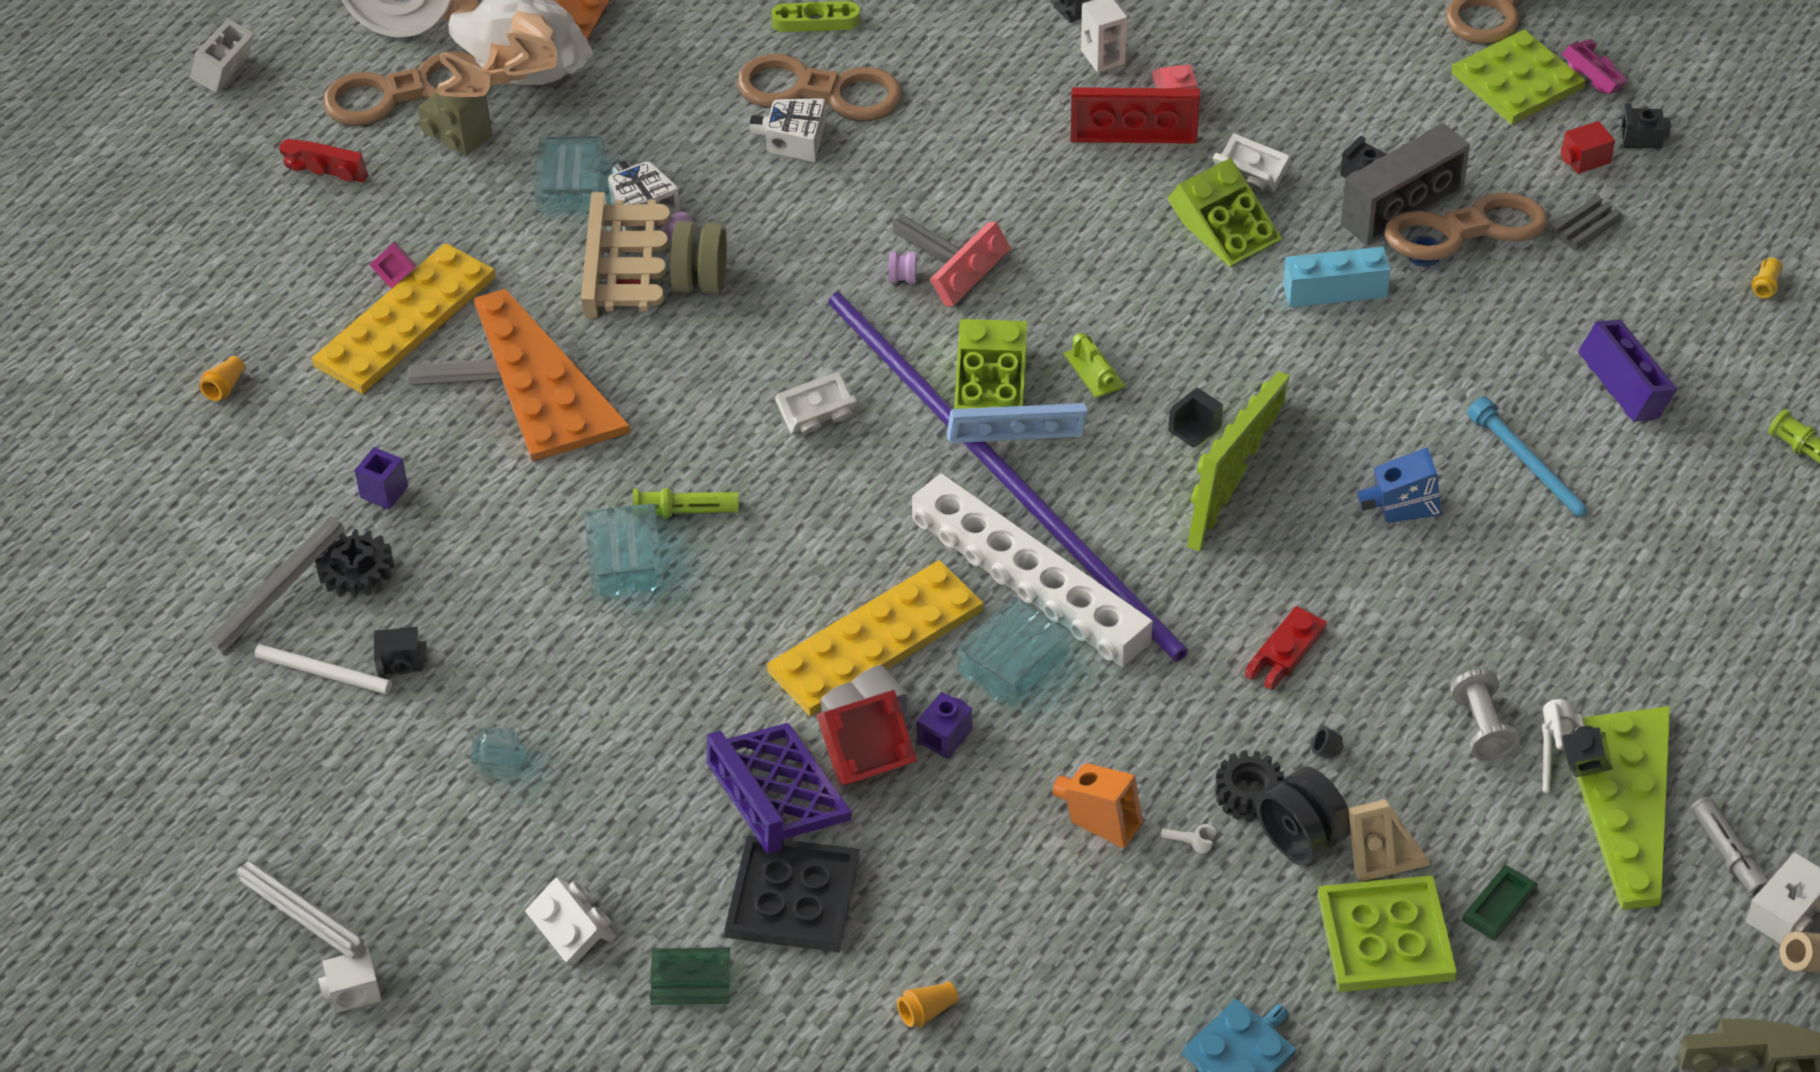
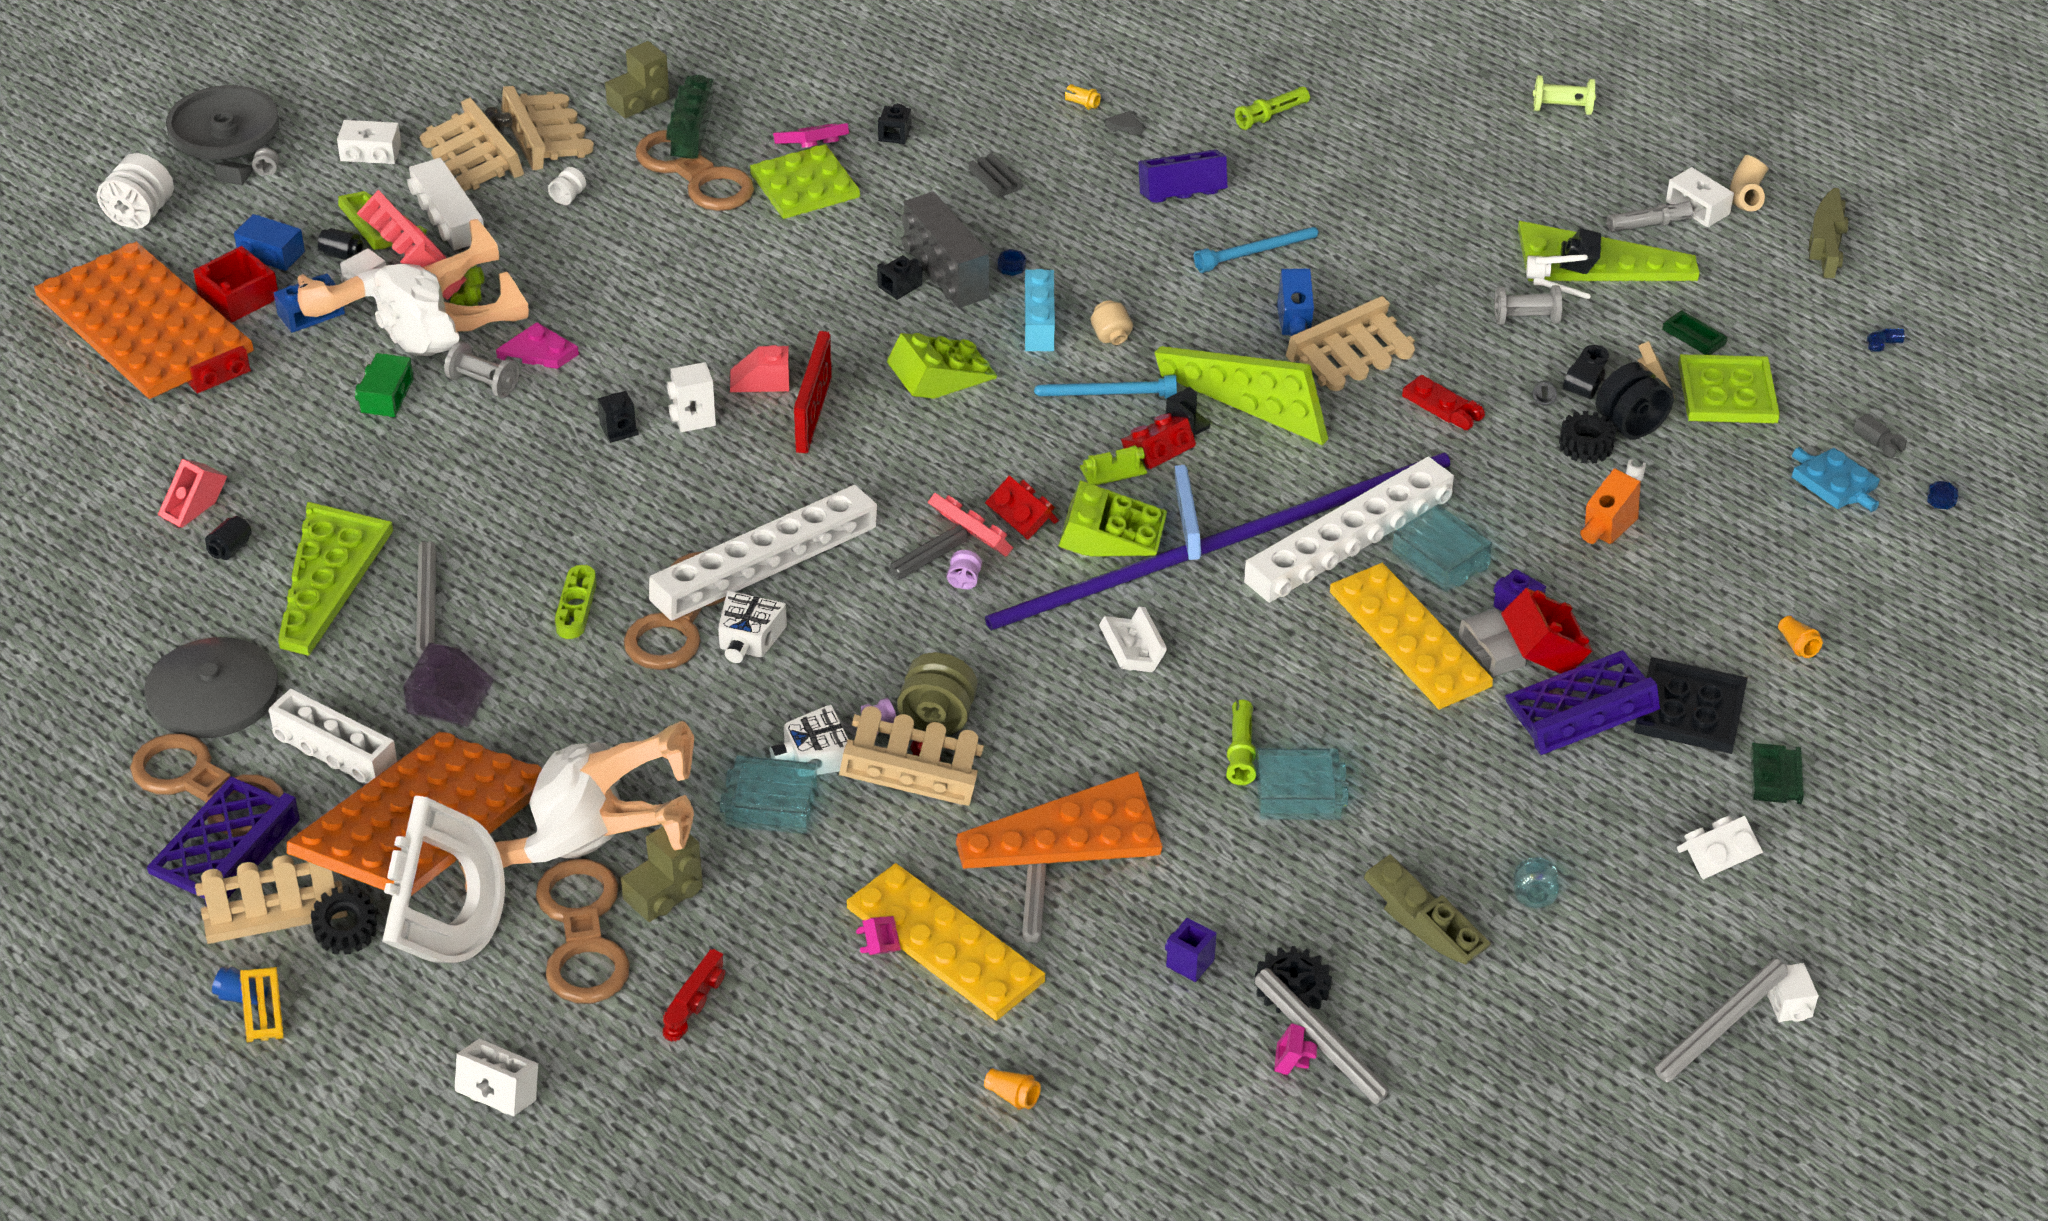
camera: 85 degrees left, 5 degrees down
(262, 565) = (1293, 1051): none -> dark pink tile
(323, 669) = (1416, 1016): white bar -> none
(399, 651) = (1411, 951): black brick -> none
(445, 668) = (1428, 918): none -> olive slope
(893, 119) = (762, 552): none -> white brick
(1015, 299) = (1019, 507): none -> red bracket
(1144, 399) = (1161, 439): none -> red bracket
(1239, 393) = (1164, 386): none -> dark azure piece
(1258, 164) = (877, 340): white bracket -> none
(1335, 339) = (1111, 322): none -> tan head
(1365, 527) = (1350, 328): none -> tan fence
(1368, 779) = (1587, 372): none -> black piece
(1465, 224) = (995, 231): medium nougat bar -> none
(1587, 147) = (912, 154): red brick -> none
(1733, 322) = (1124, 122): none -> dark grey tile

